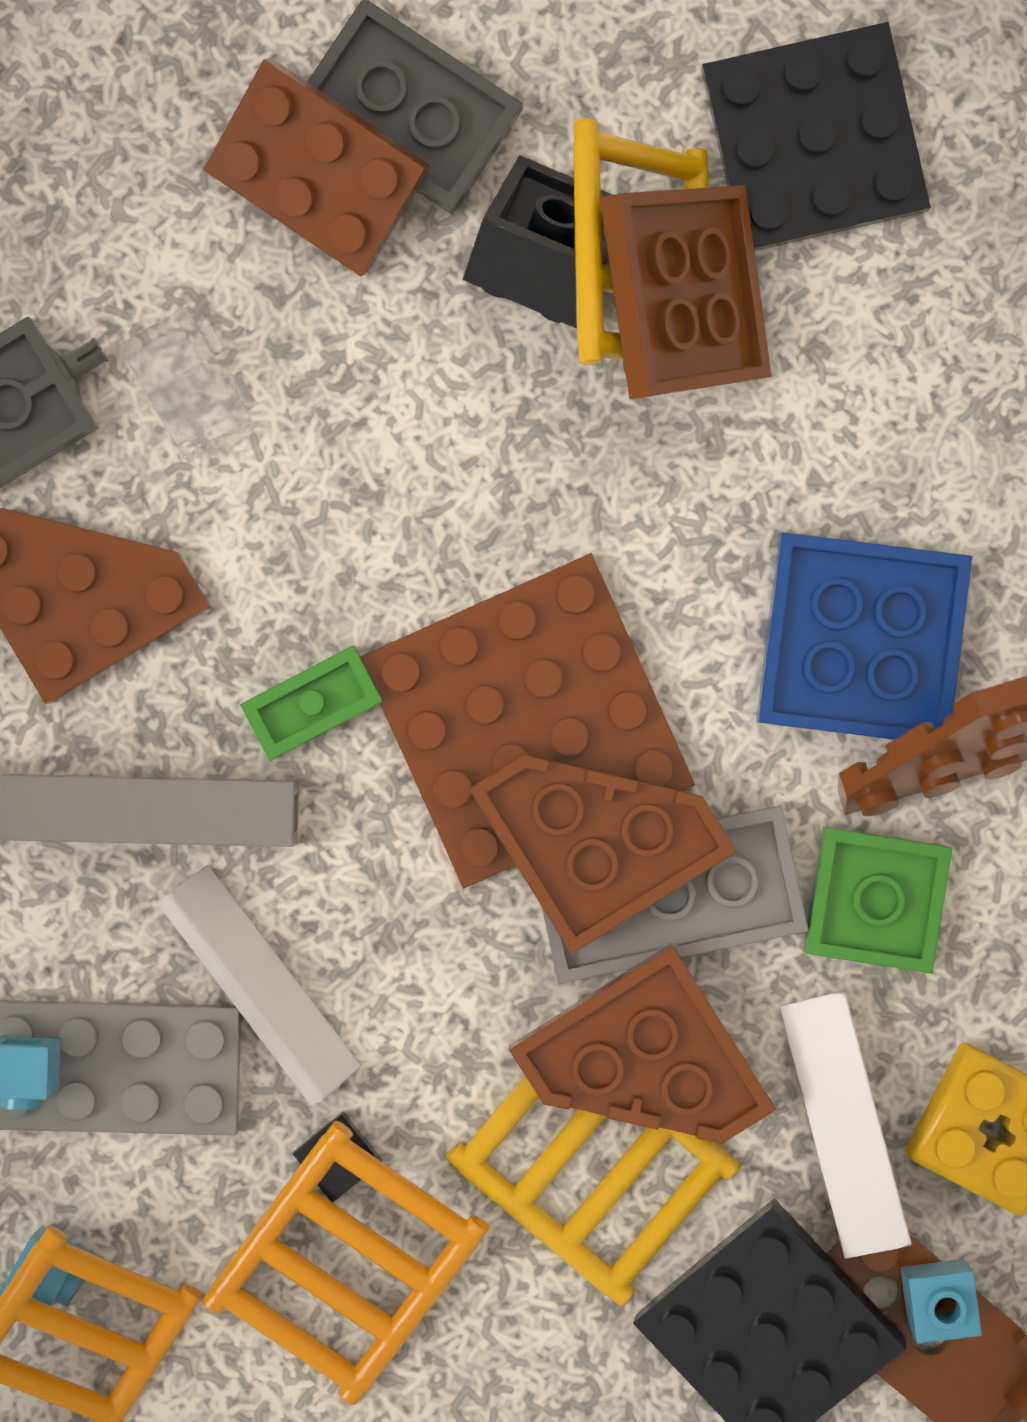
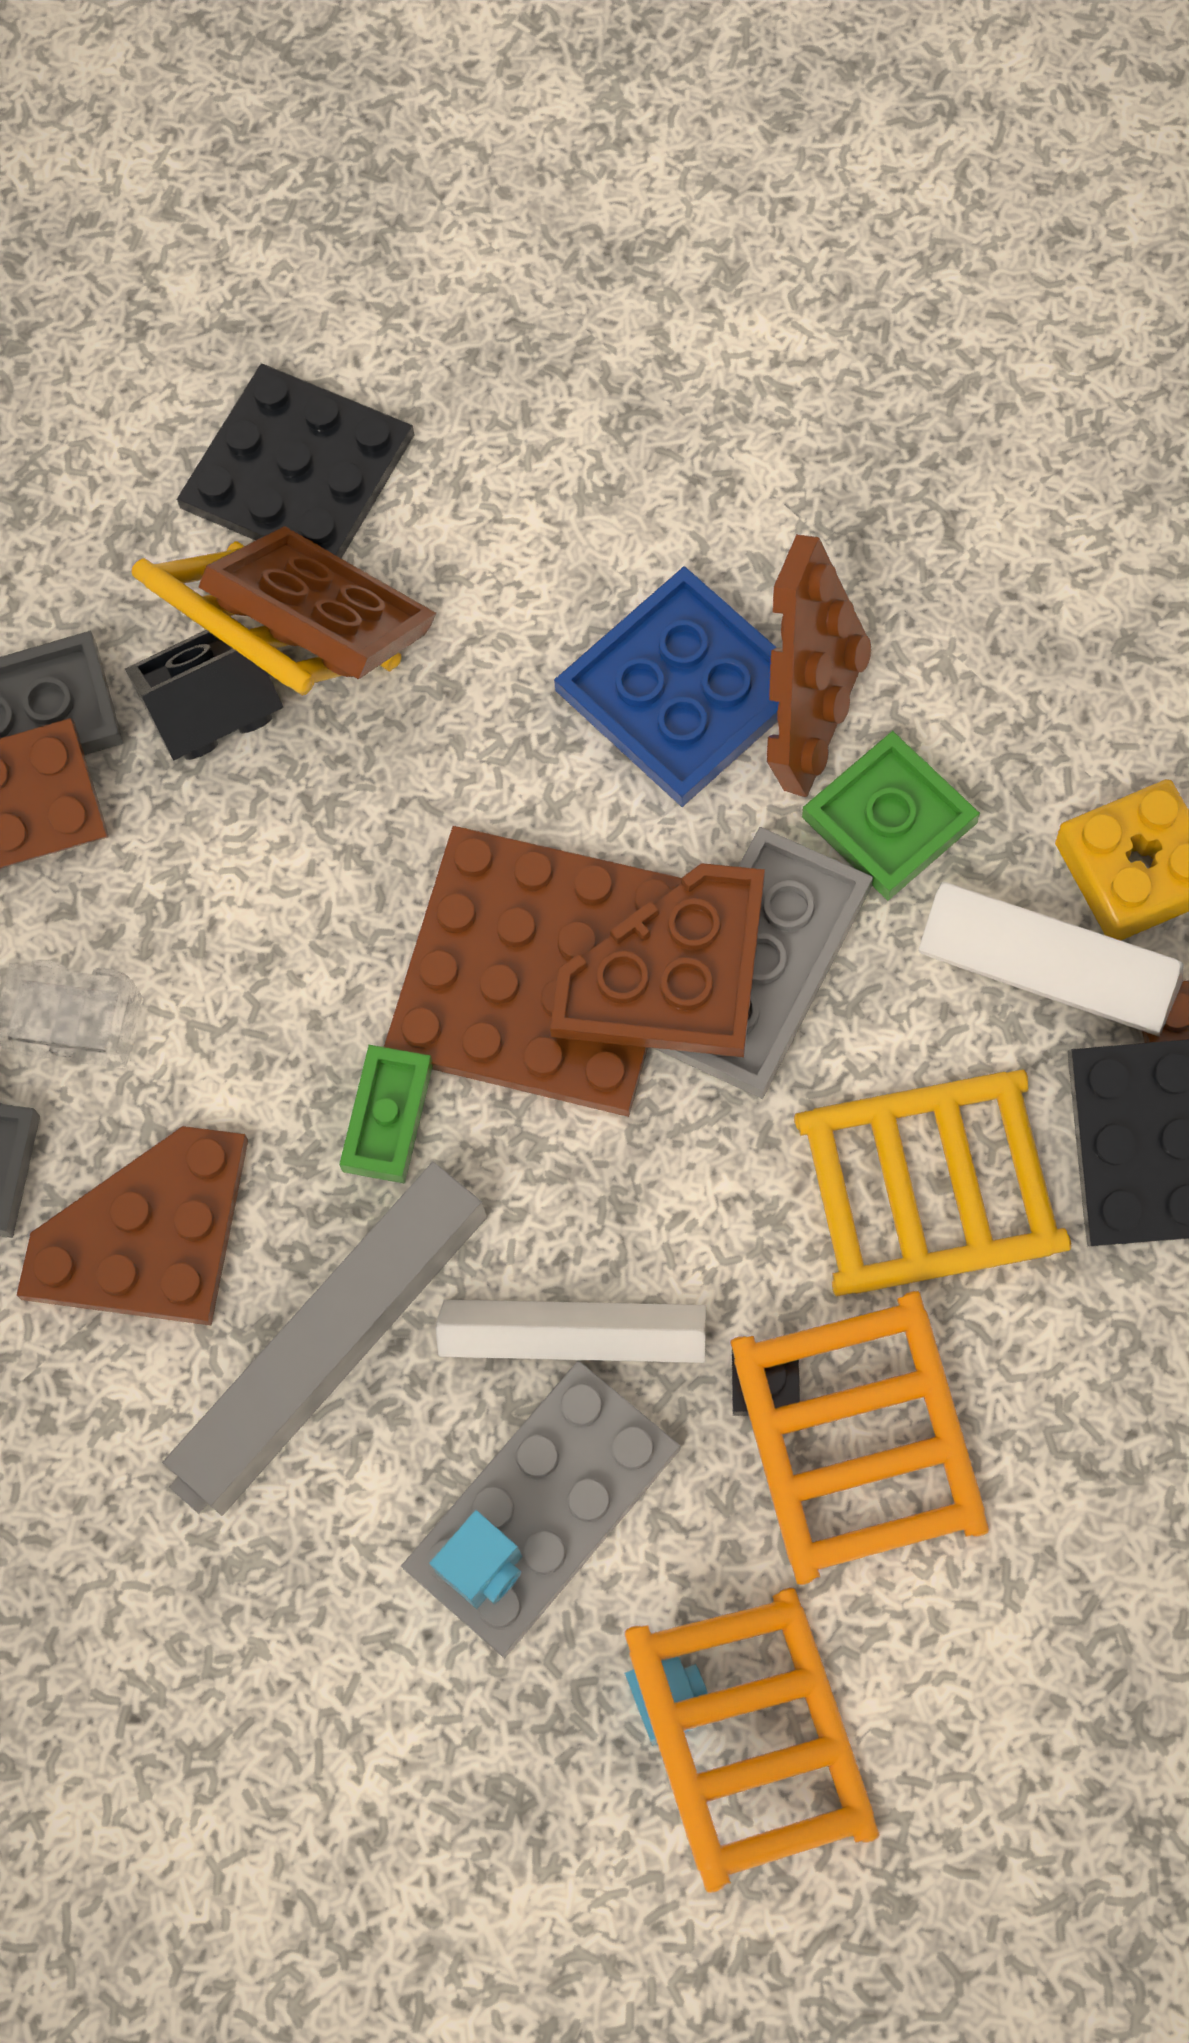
camera: 40 degrees left, 20 degrees down
(646, 1056) = (874, 1061): dark orange plate -> none

